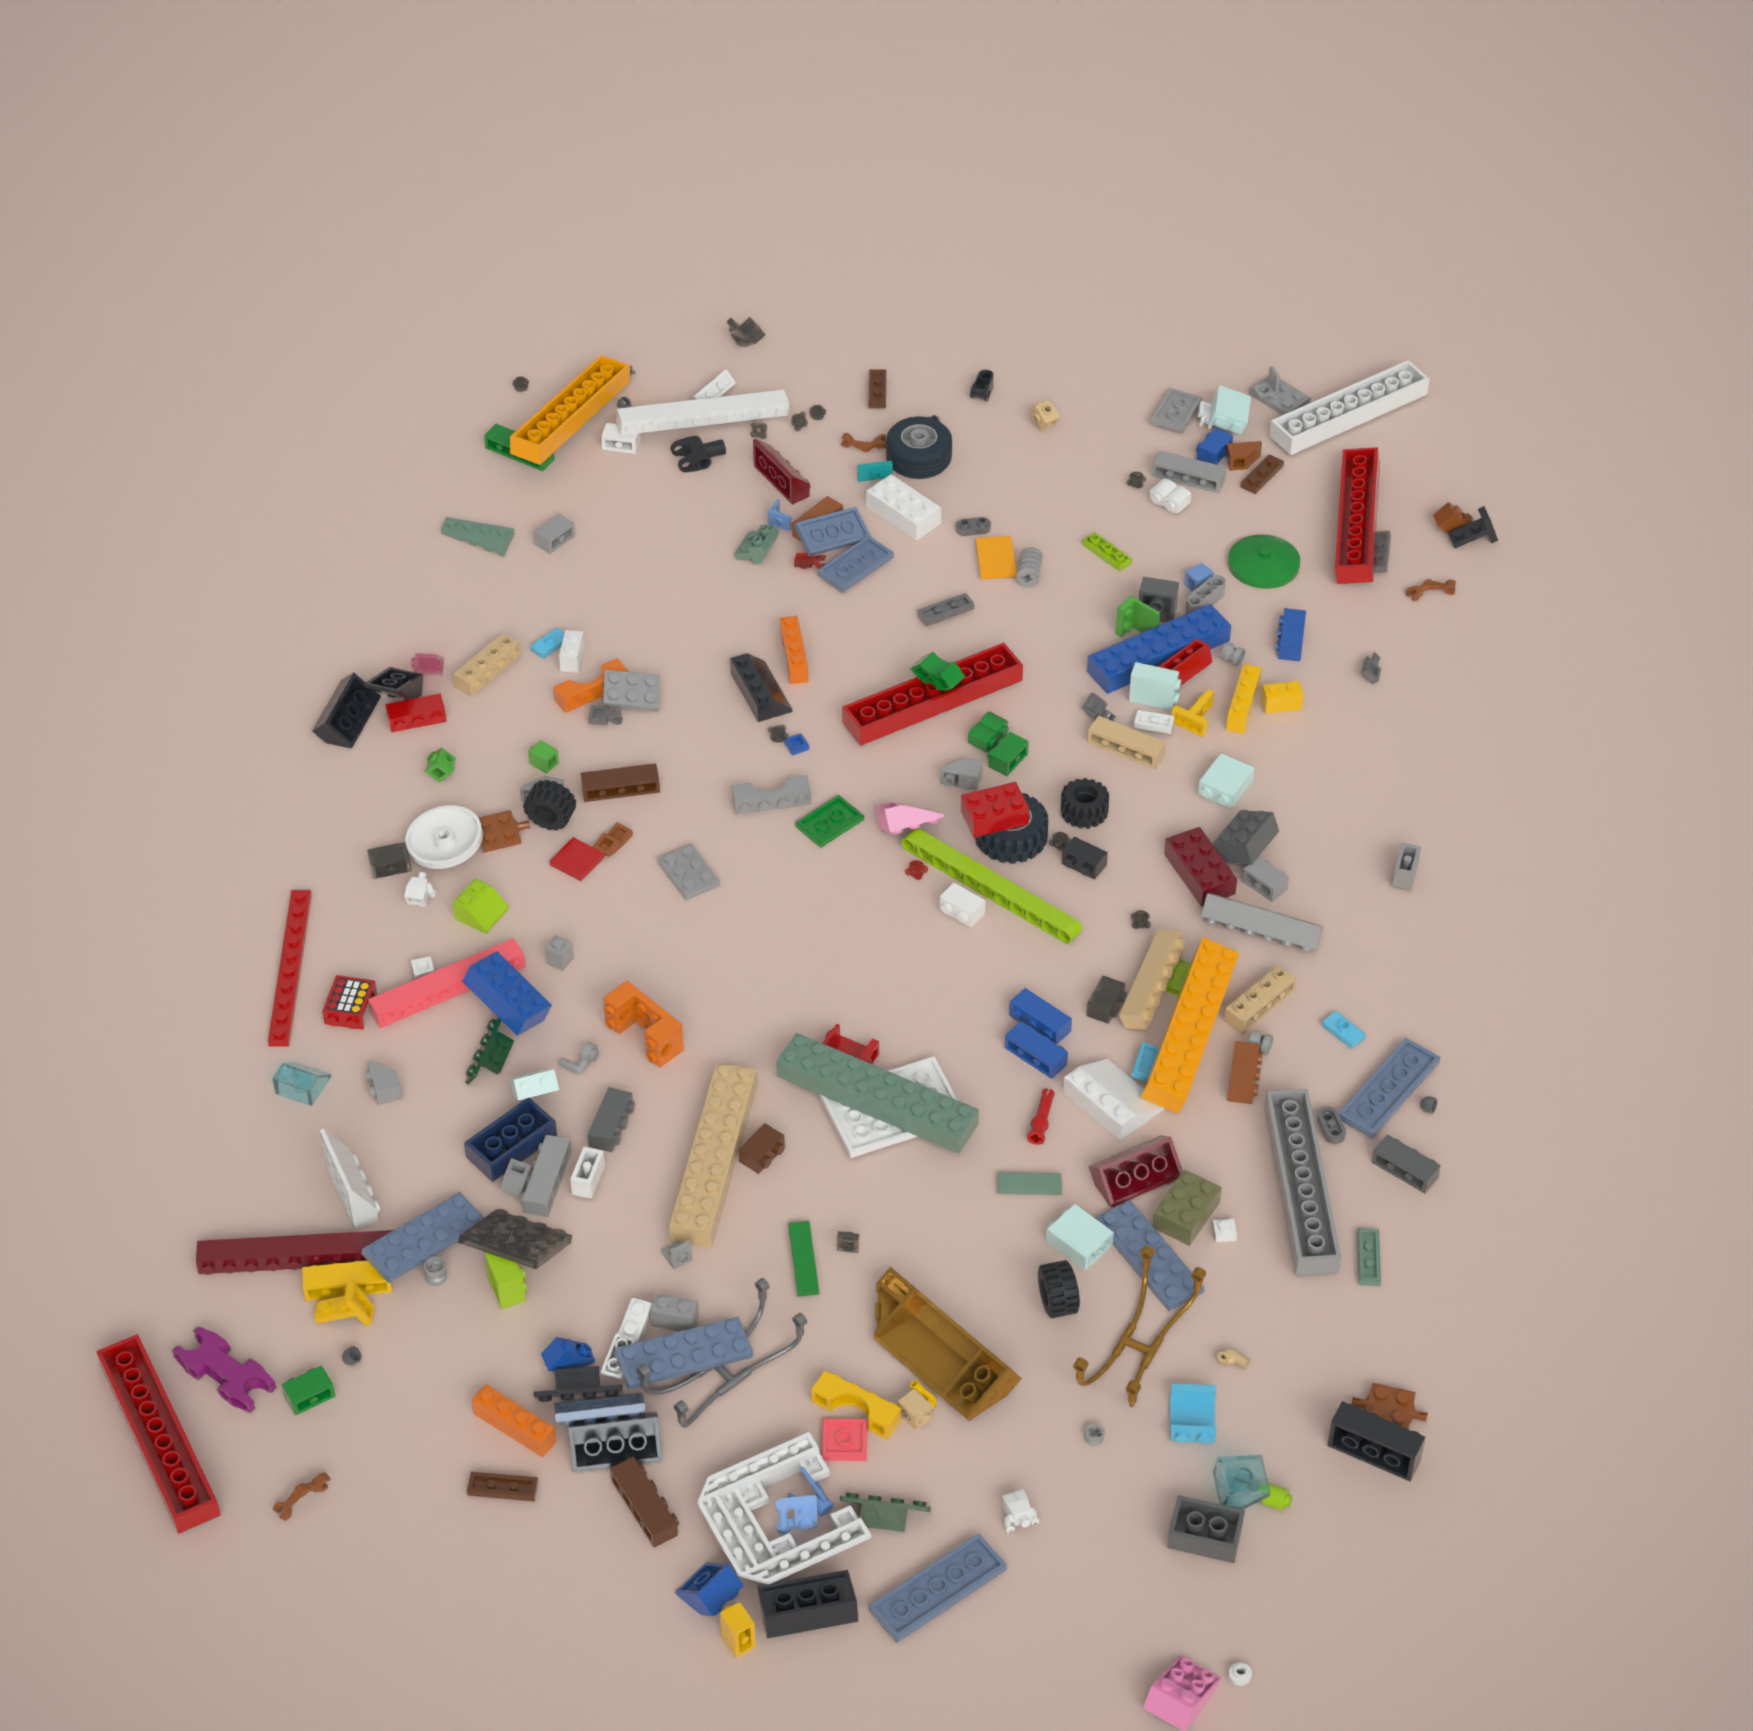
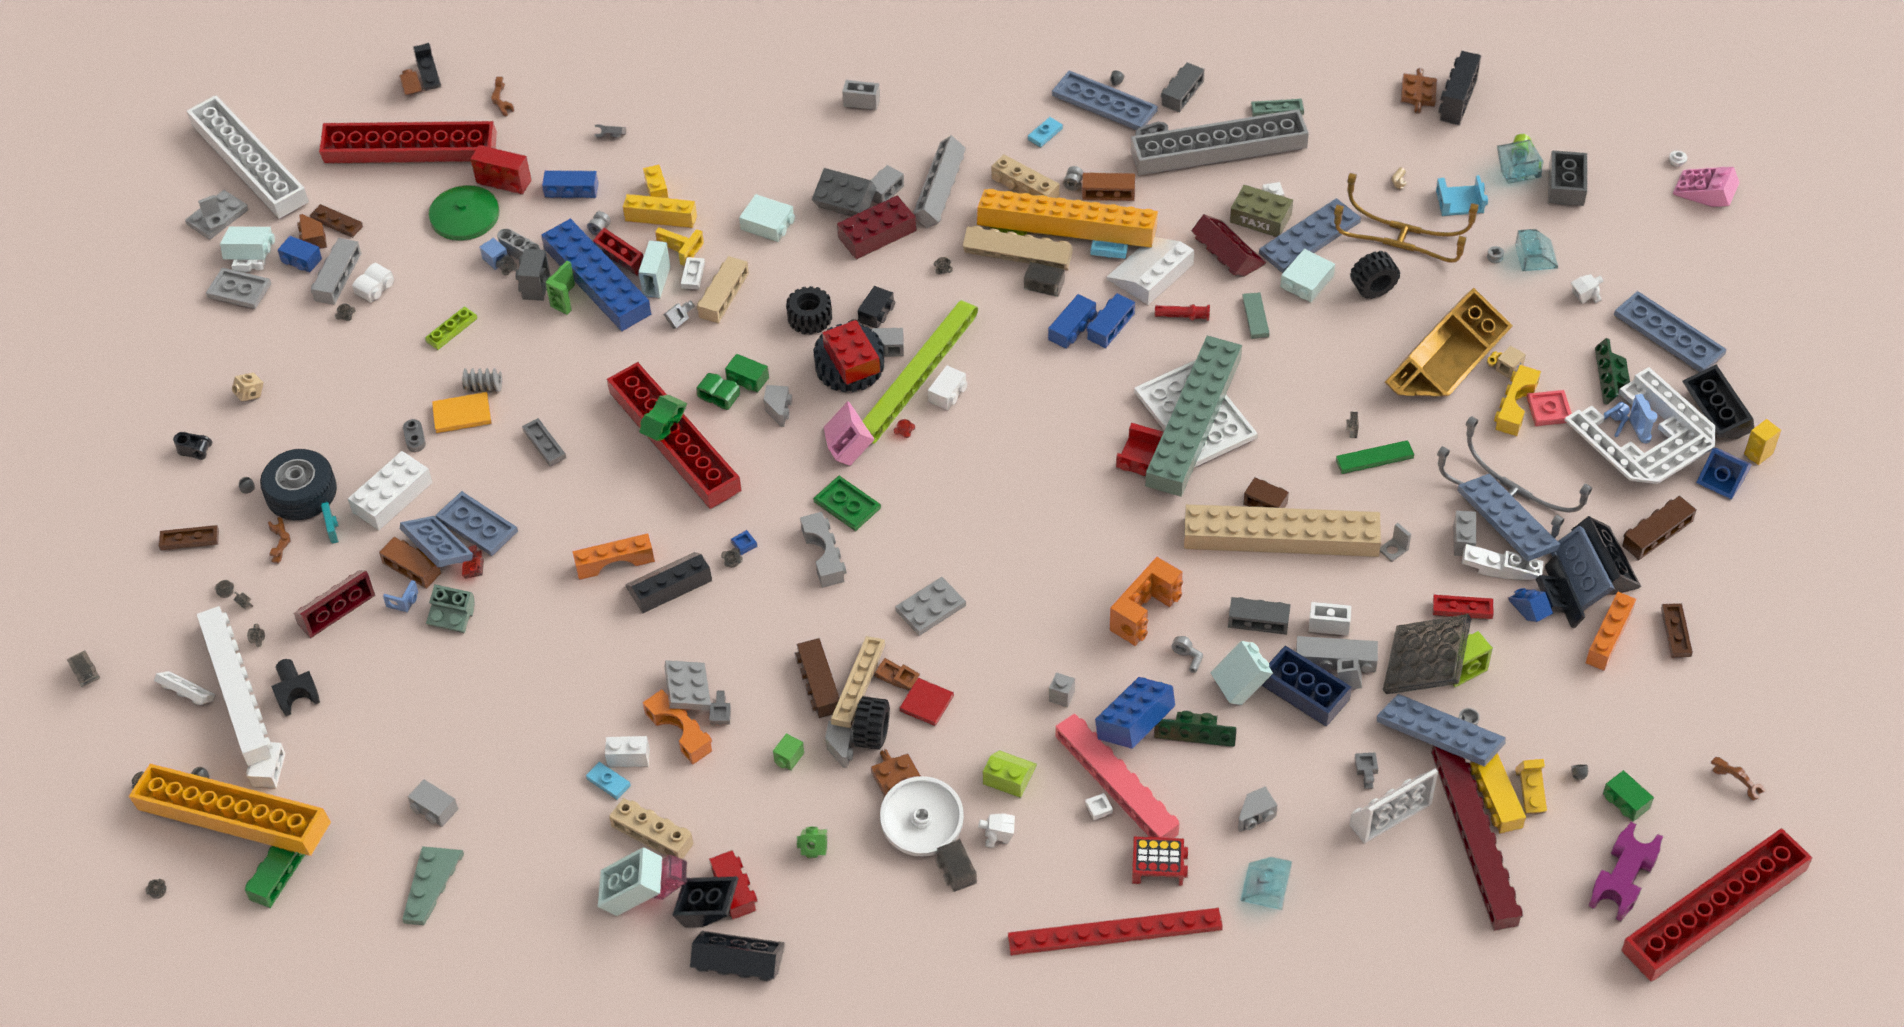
camera: 95 degrees left, 5 degrees up
(407, 1179) = (1366, 765): none -> flat silver plate
(426, 639) = (630, 881): none -> light aqua brick
(581, 1296) = (1459, 605): none -> red plate
(608, 805) = (858, 681): none -> tan plate
(1033, 864) = (892, 341): none -> light grey slope
(1090, 1473) = (1535, 250): none -> clear light blue slope
(1184, 583) = (506, 260): none -> clear smoke plate
(1309, 578) = (501, 169): none -> red brick

